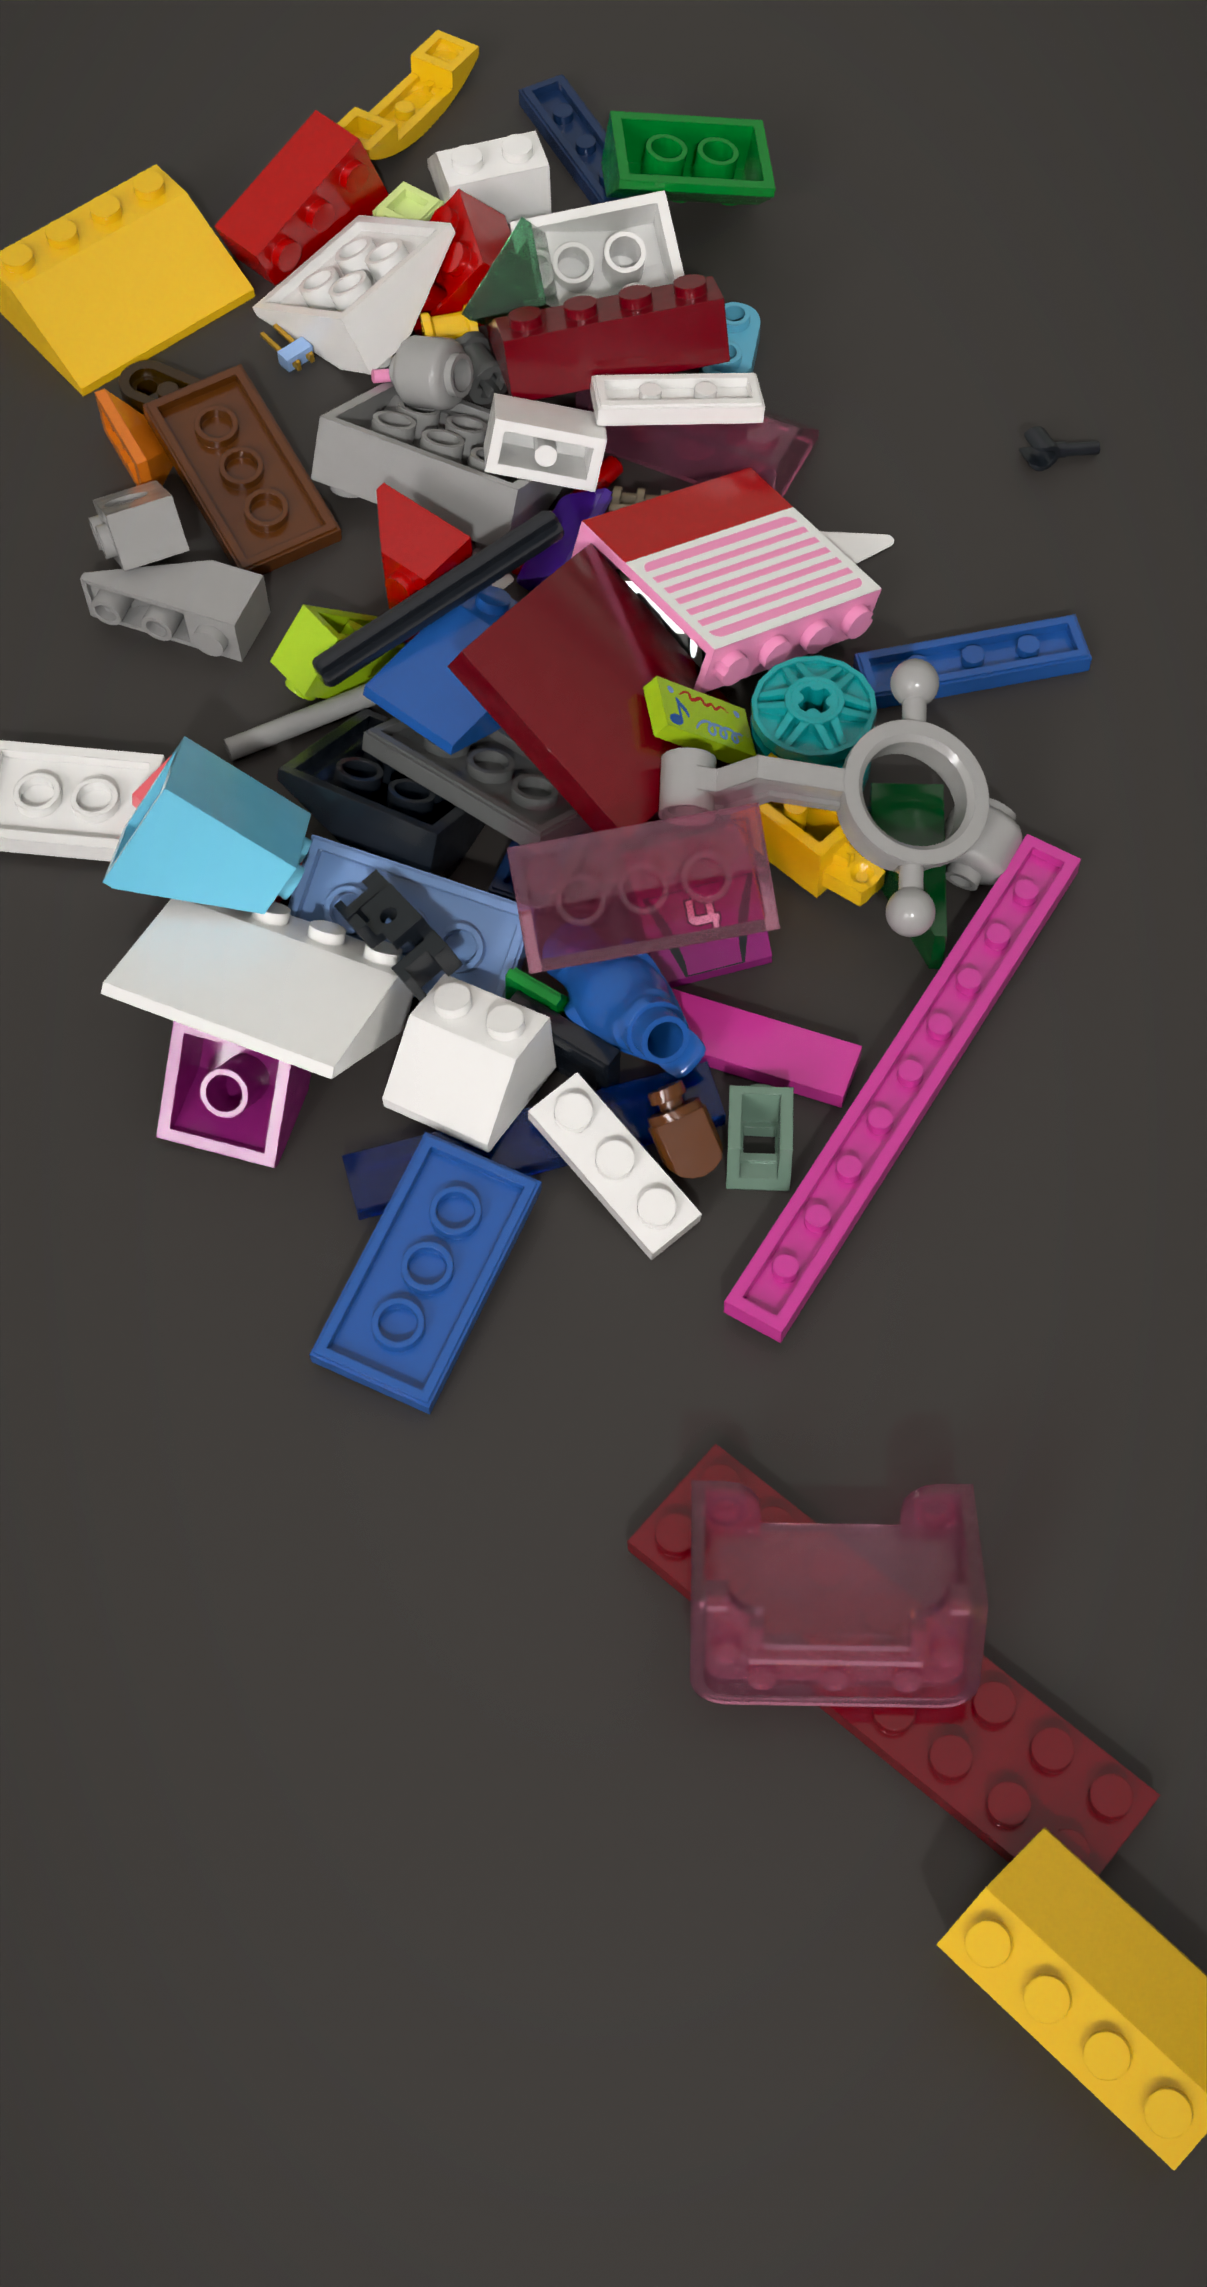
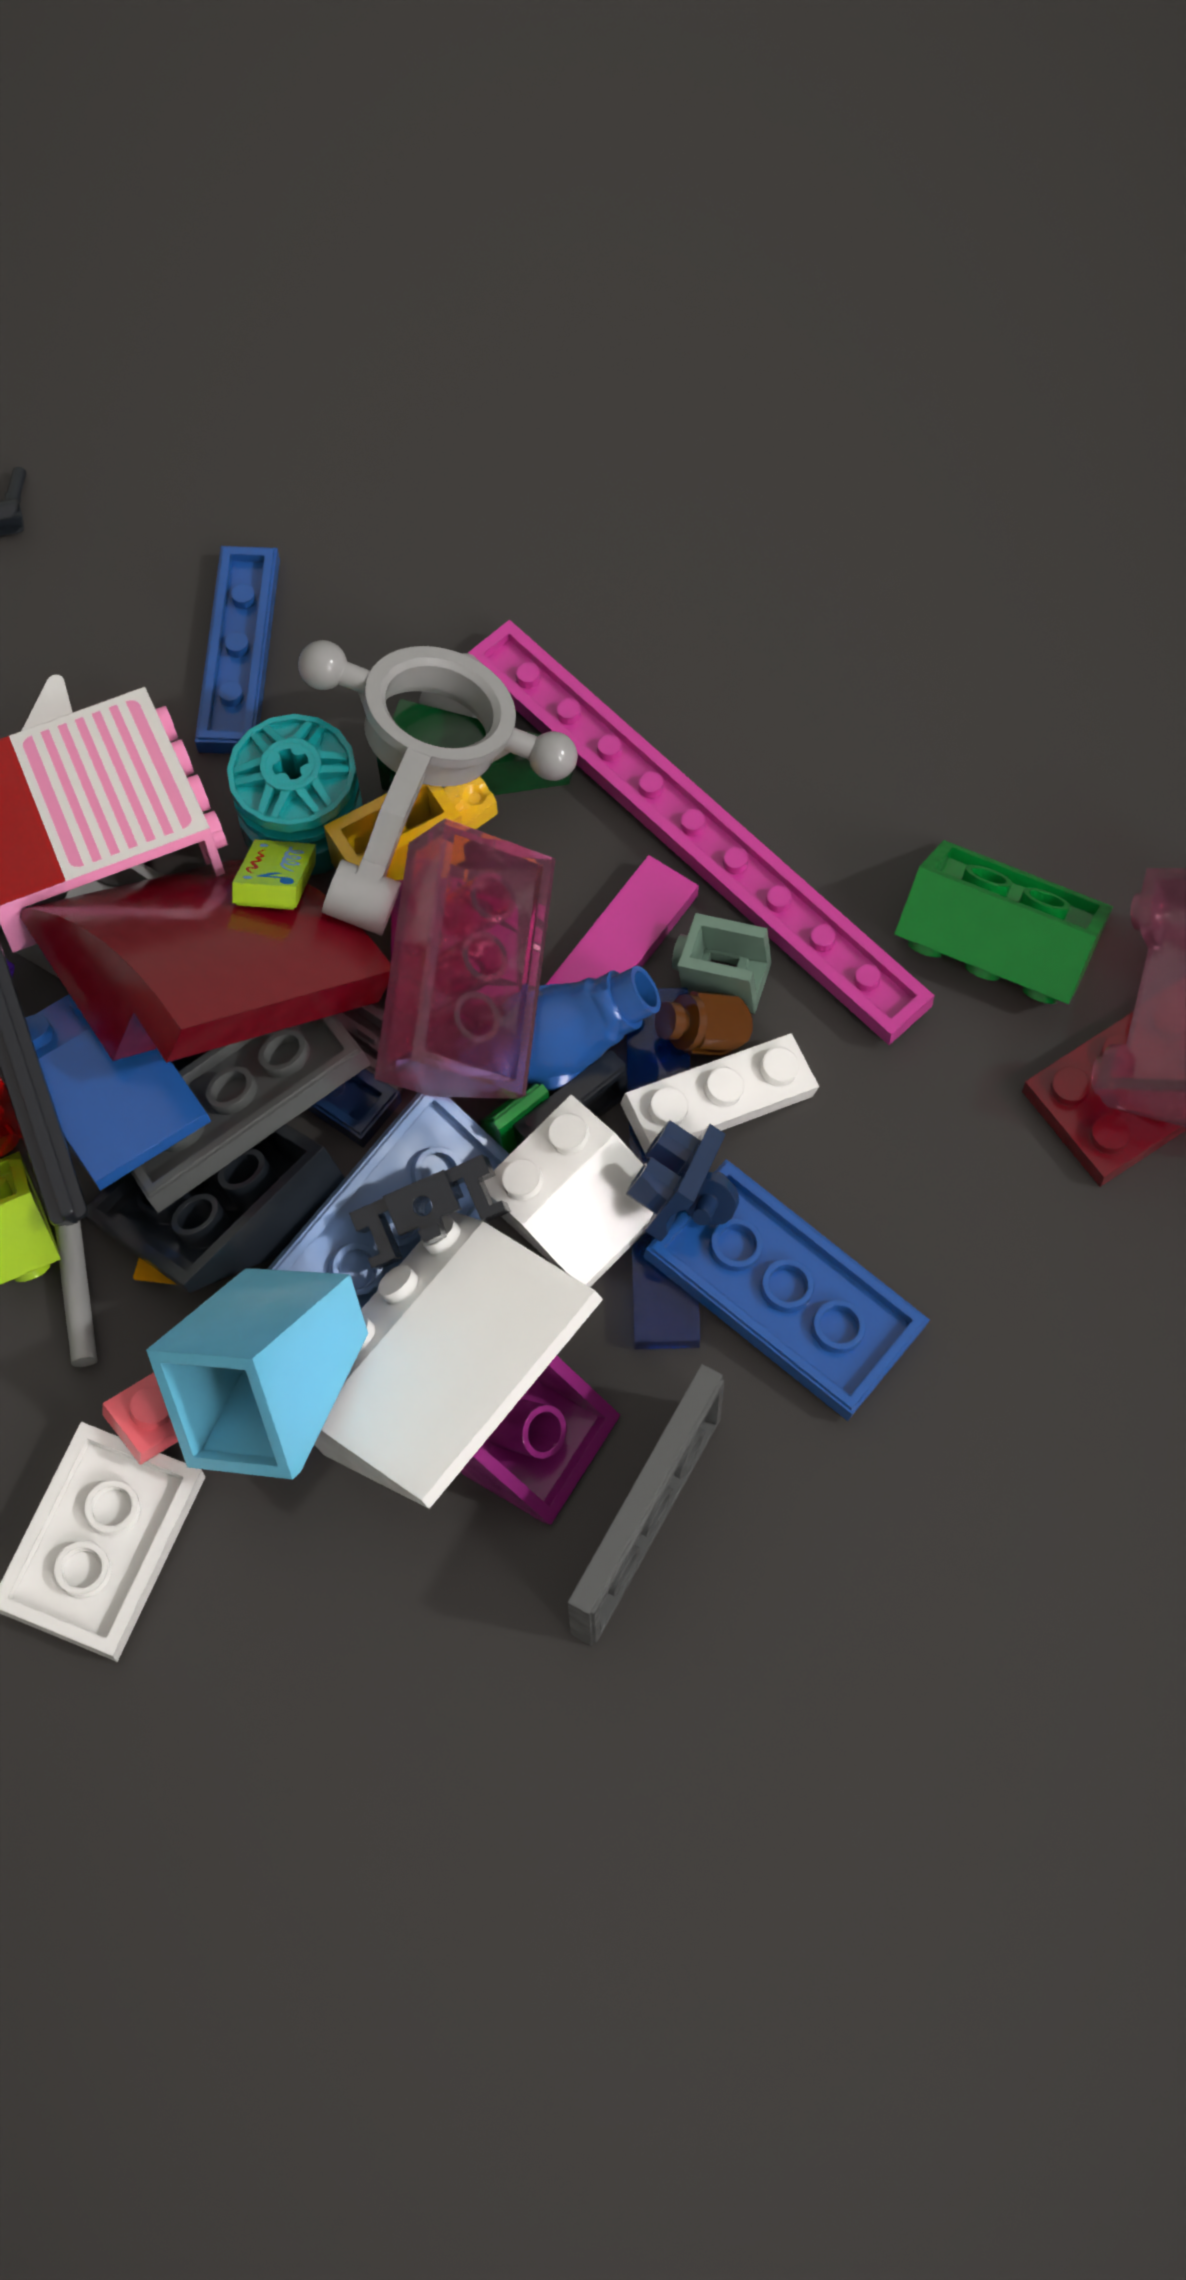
camera: 75 degrees left, 5 degrees up
(166, 1187) = (646, 1507): none -> dark grey tile
(464, 1122) = (680, 1180): none -> dark blue hips
(896, 1382) = (1002, 922): none -> green slope

